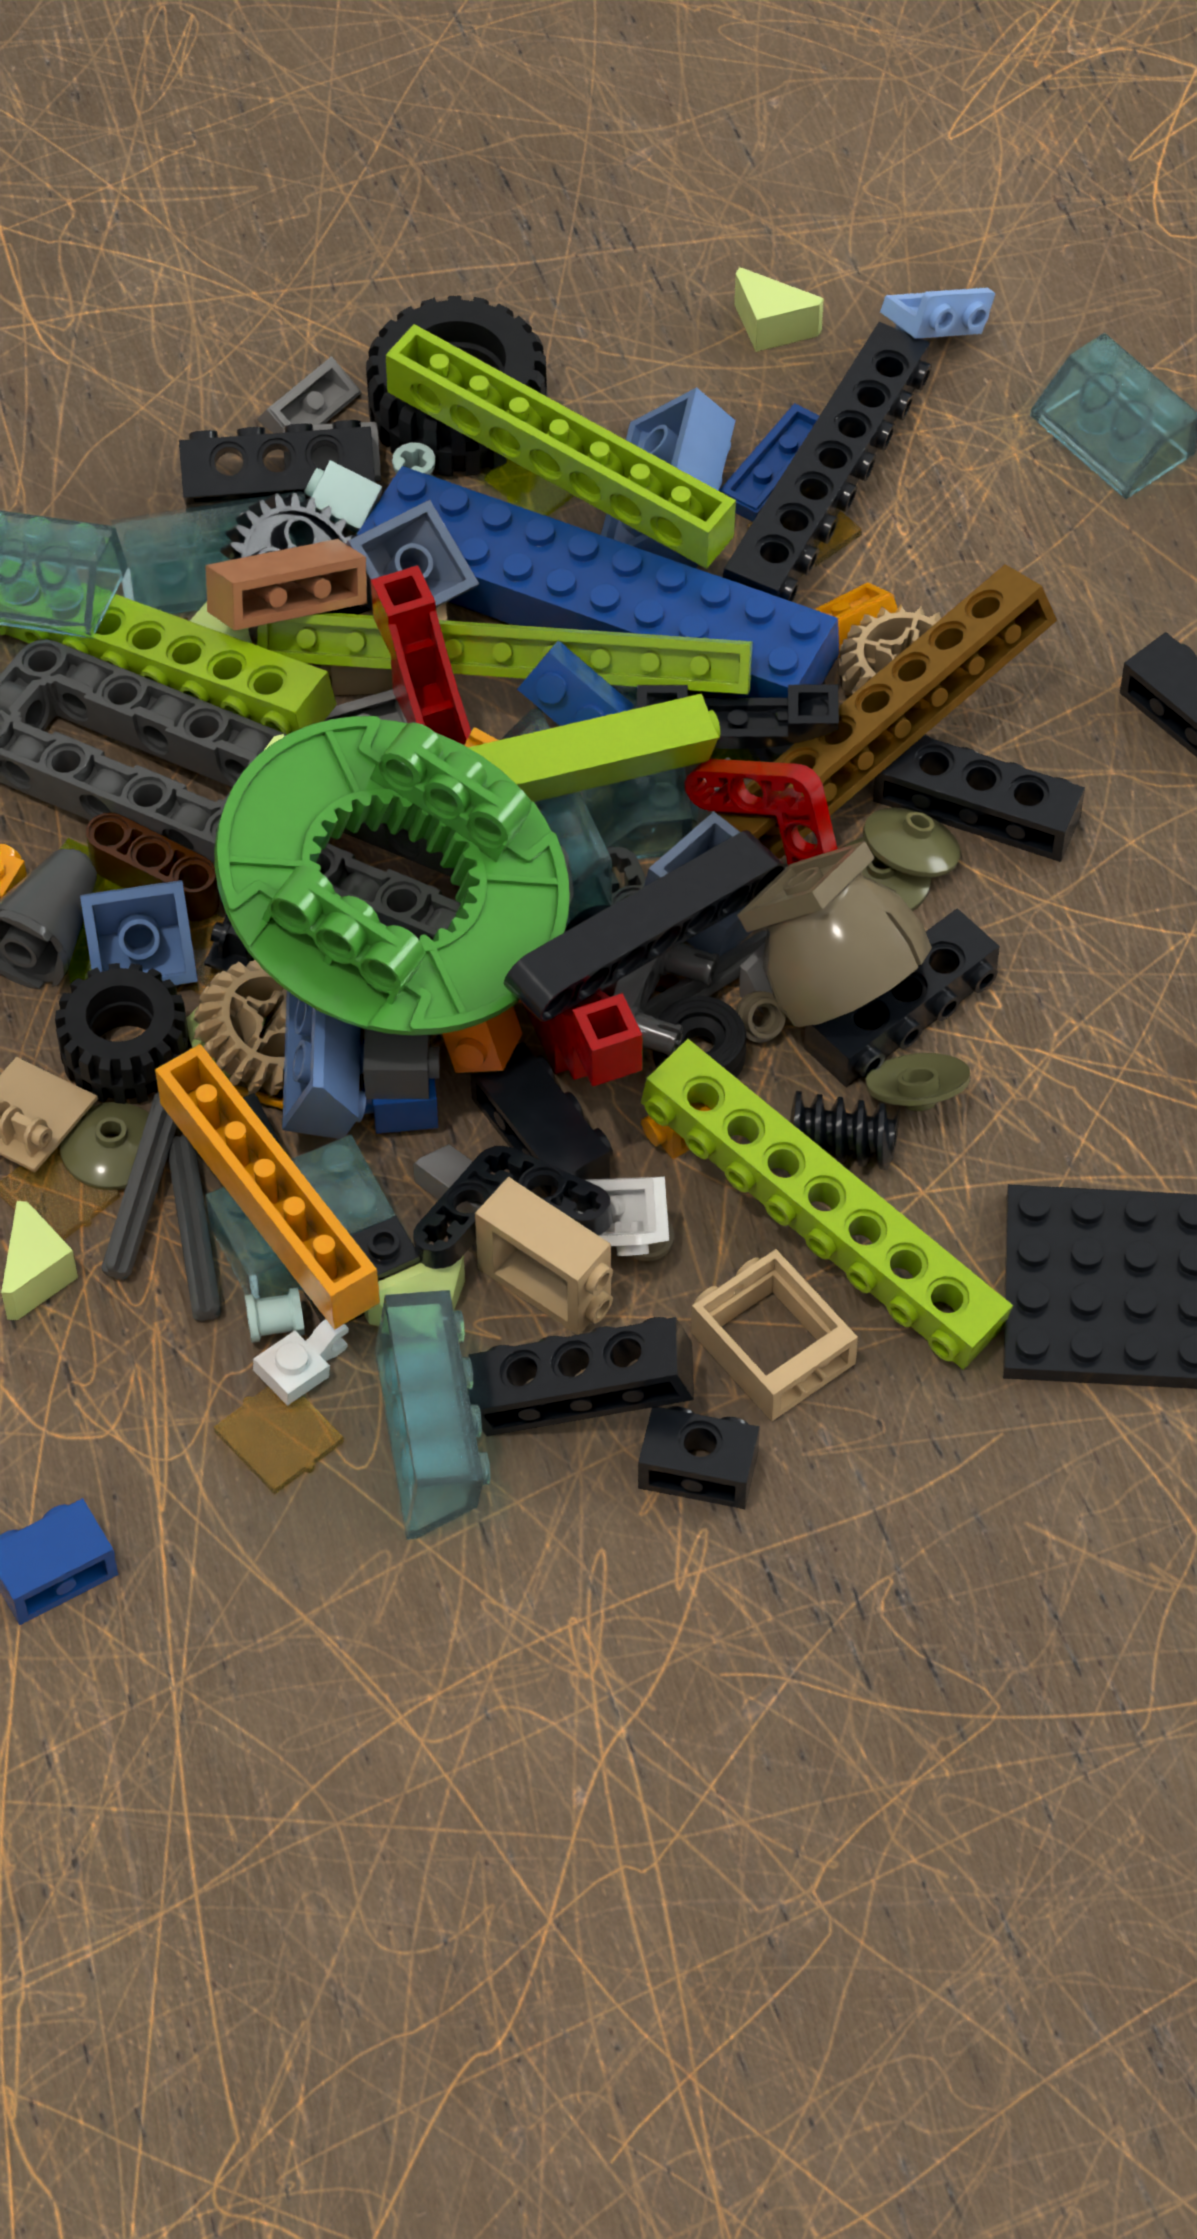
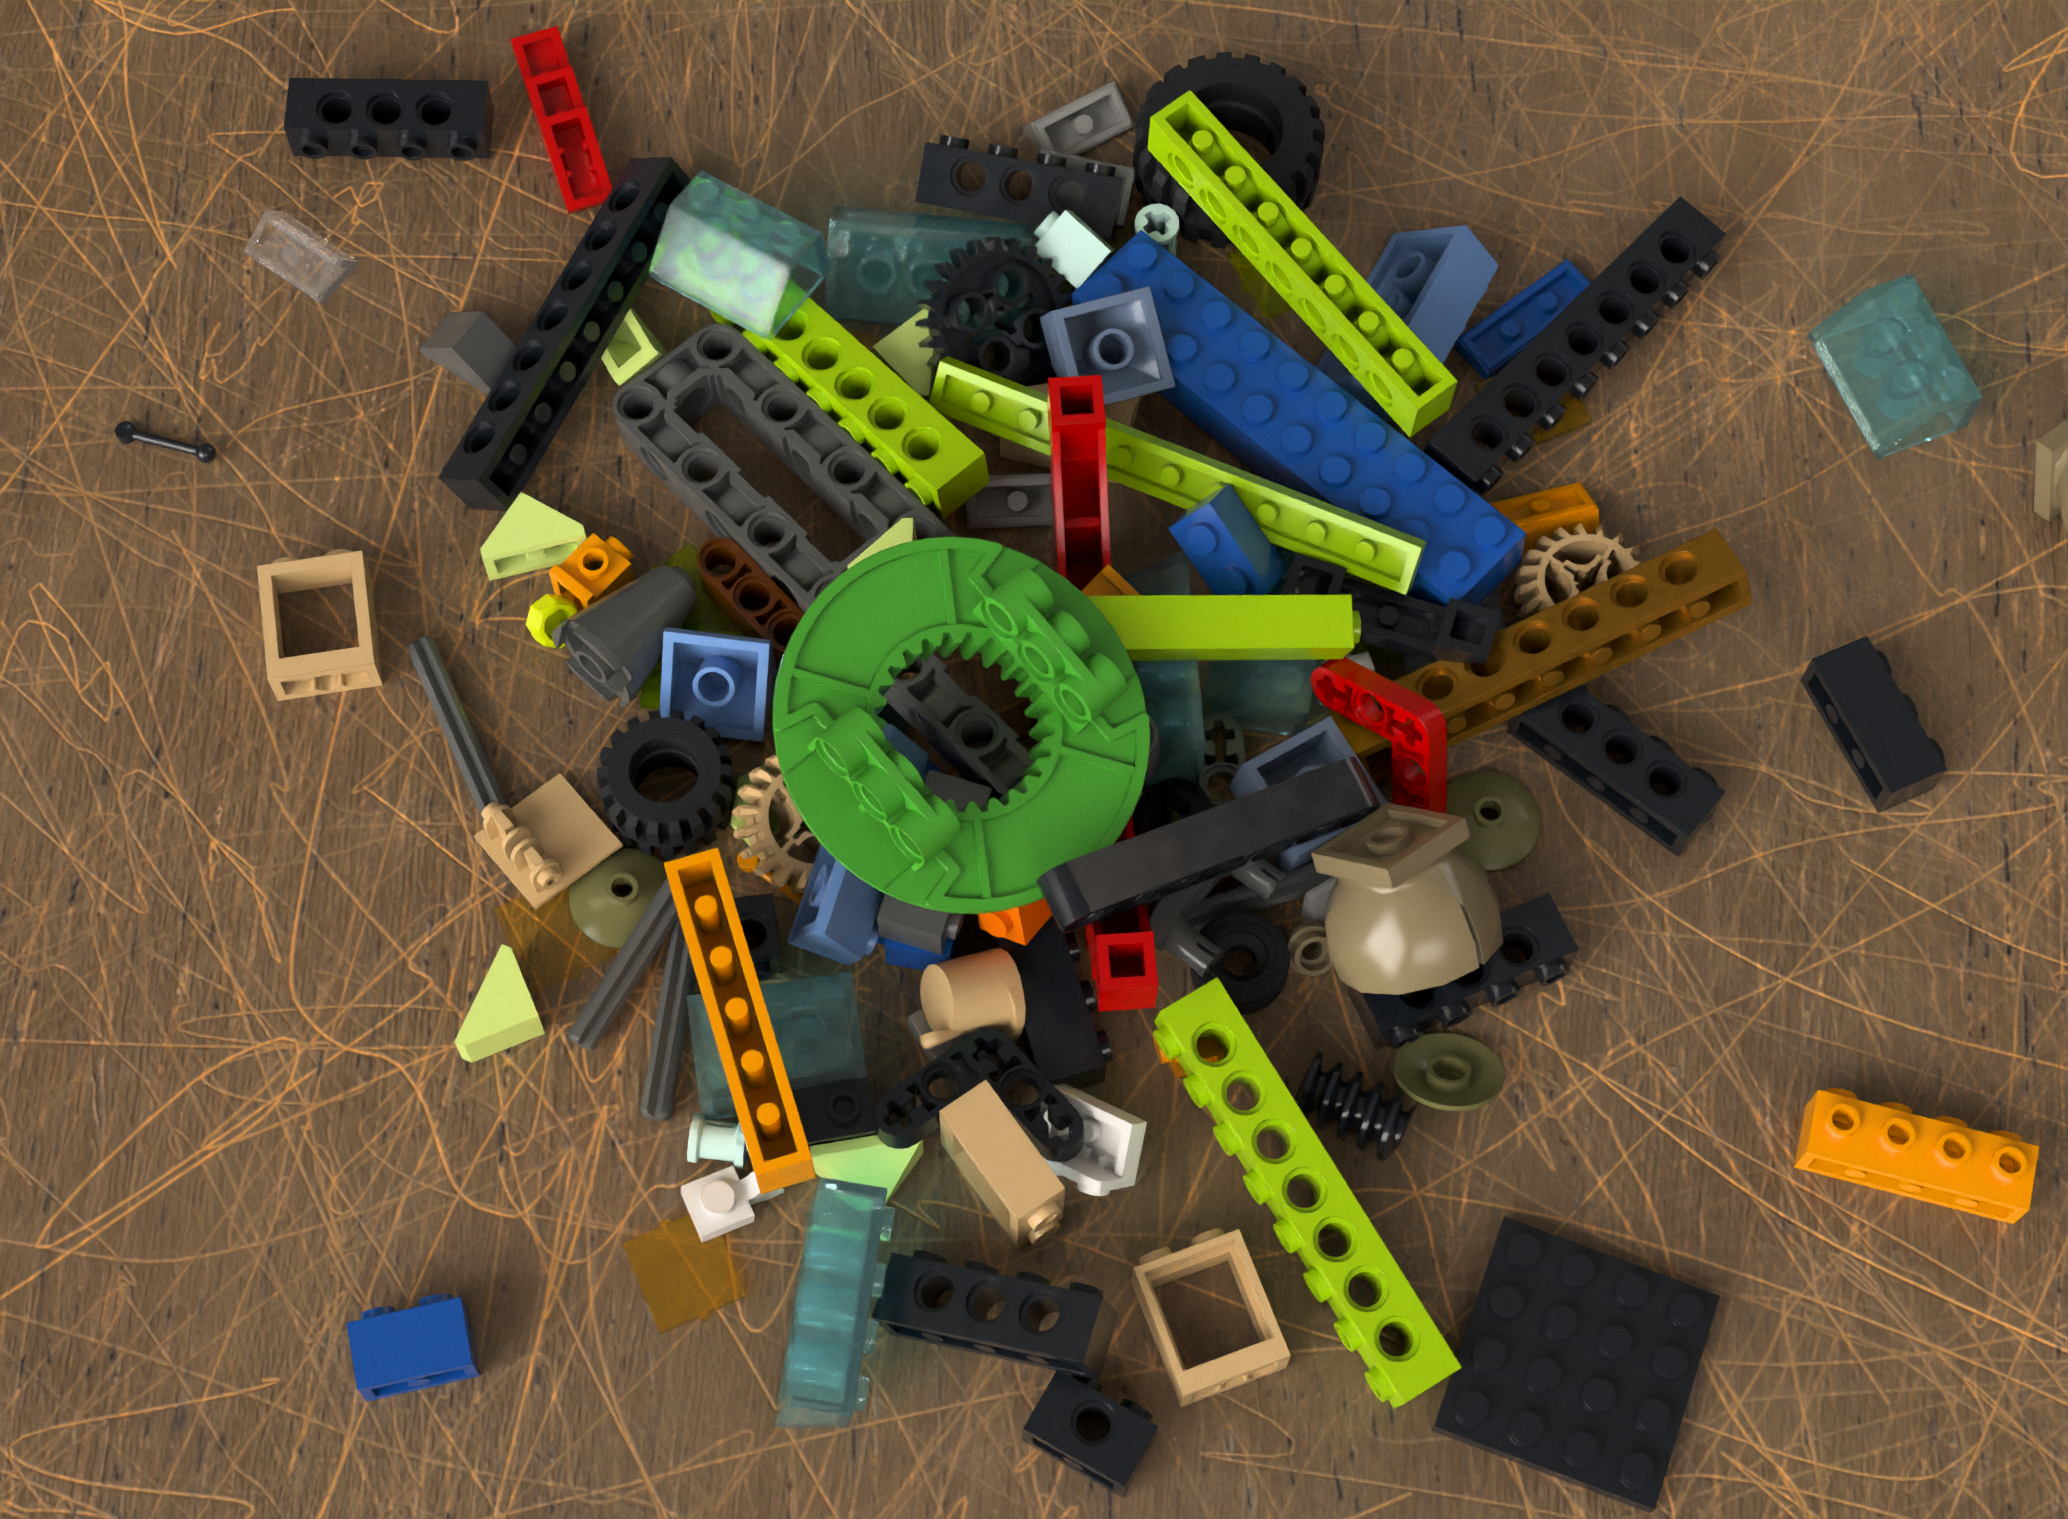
camera: 15 degrees right, 10 degrees up
(286, 584) = (974, 342): nougat brick -> none
(465, 1124) = (972, 995): none -> tan hat
(775, 311) = (1580, 150): yellowish green slope -> none
(911, 842) = (1528, 795): olive dish -> none
(940, 312) = (1746, 199): light blue bracket -> none

